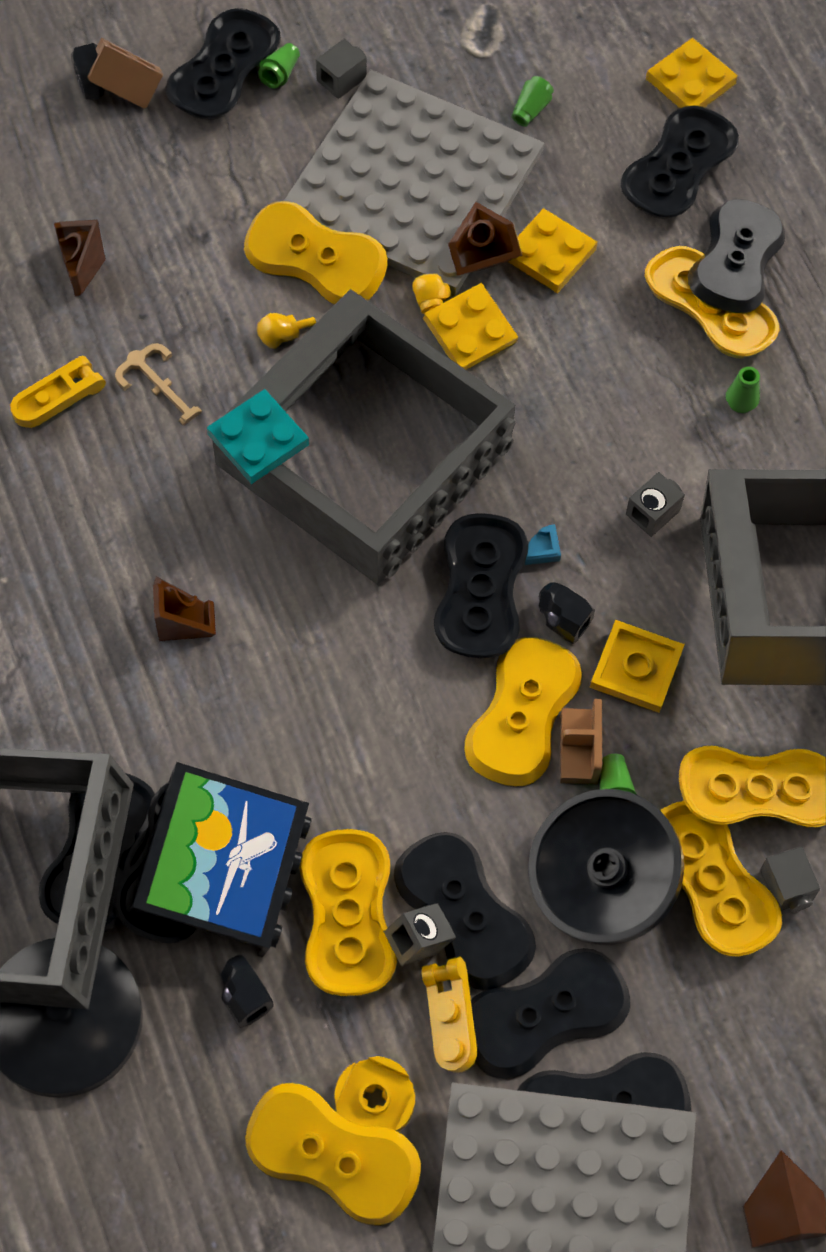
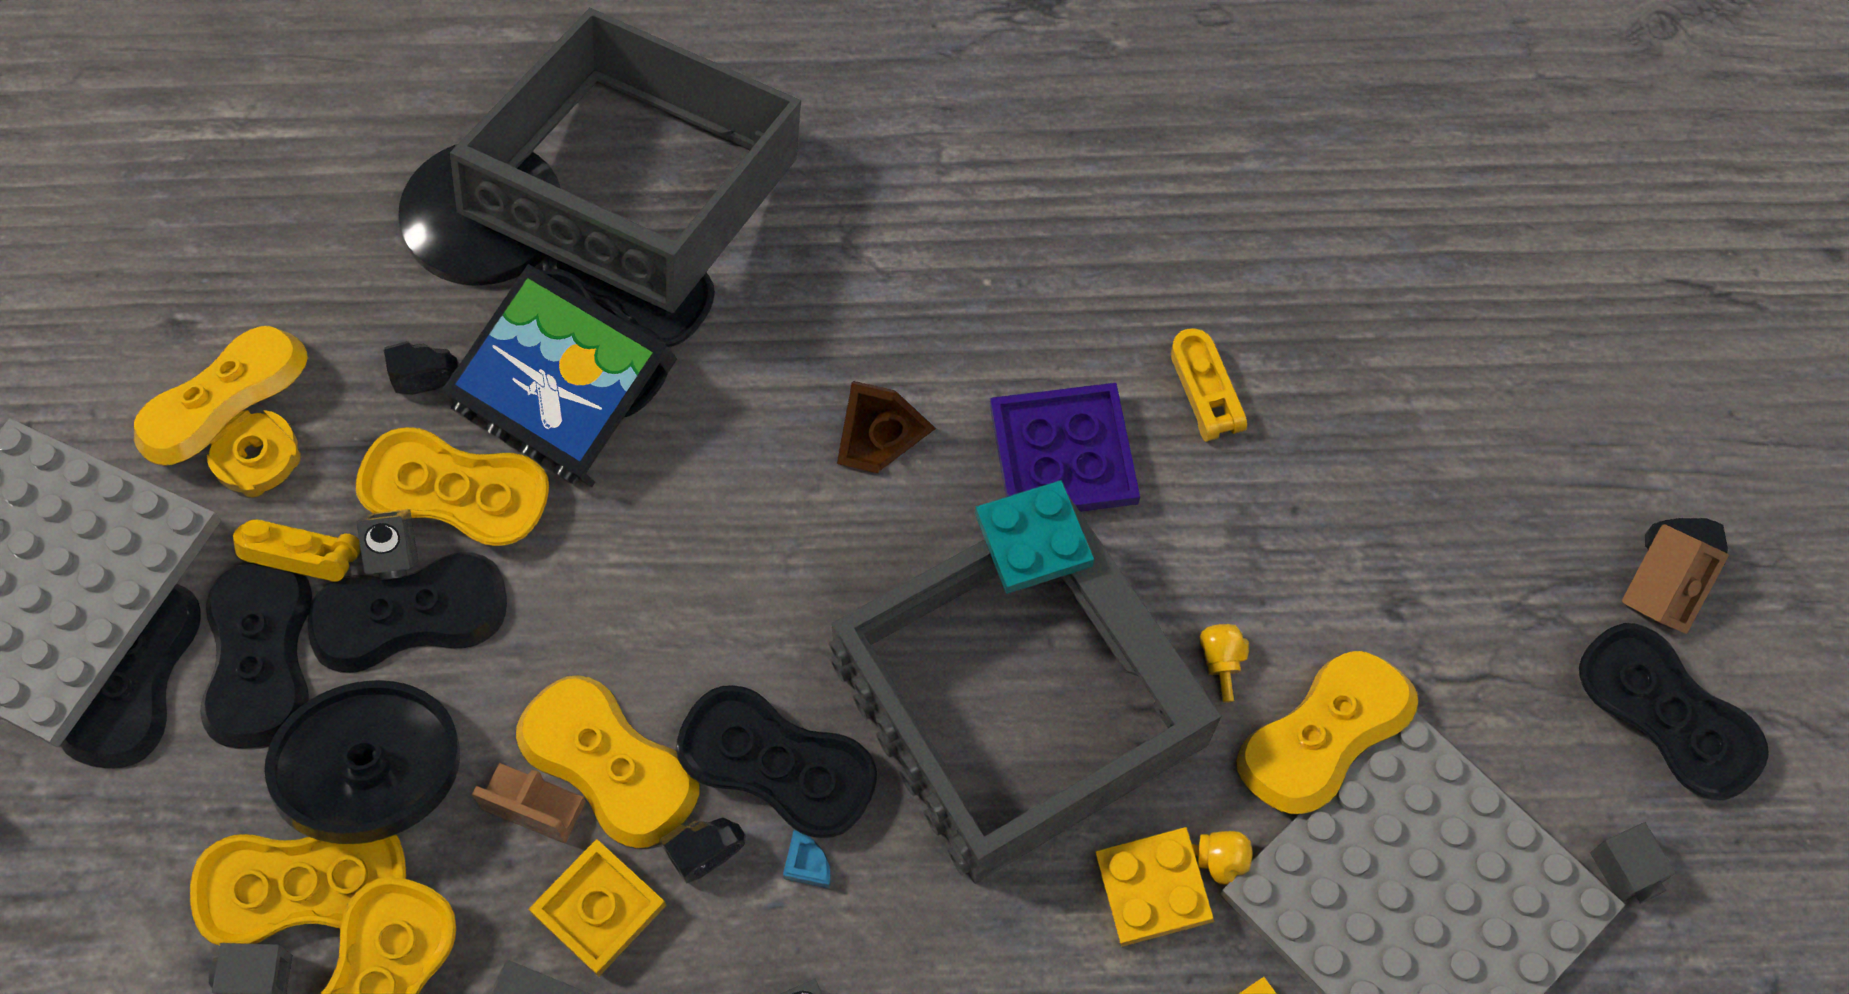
camera: 110 degrees right, 0 degrees up
(81, 251) = (1394, 457): reddish brown slope -> none
(137, 360) = (1231, 485): tan piece -> none
(150, 473) = (1069, 438): none -> dark purple plate
(278, 66) = (1657, 784): bright green cone -> none
(483, 241) = (1274, 936): reddish brown slope -> none
(616, 774) = (463, 821): bright green cone -> none

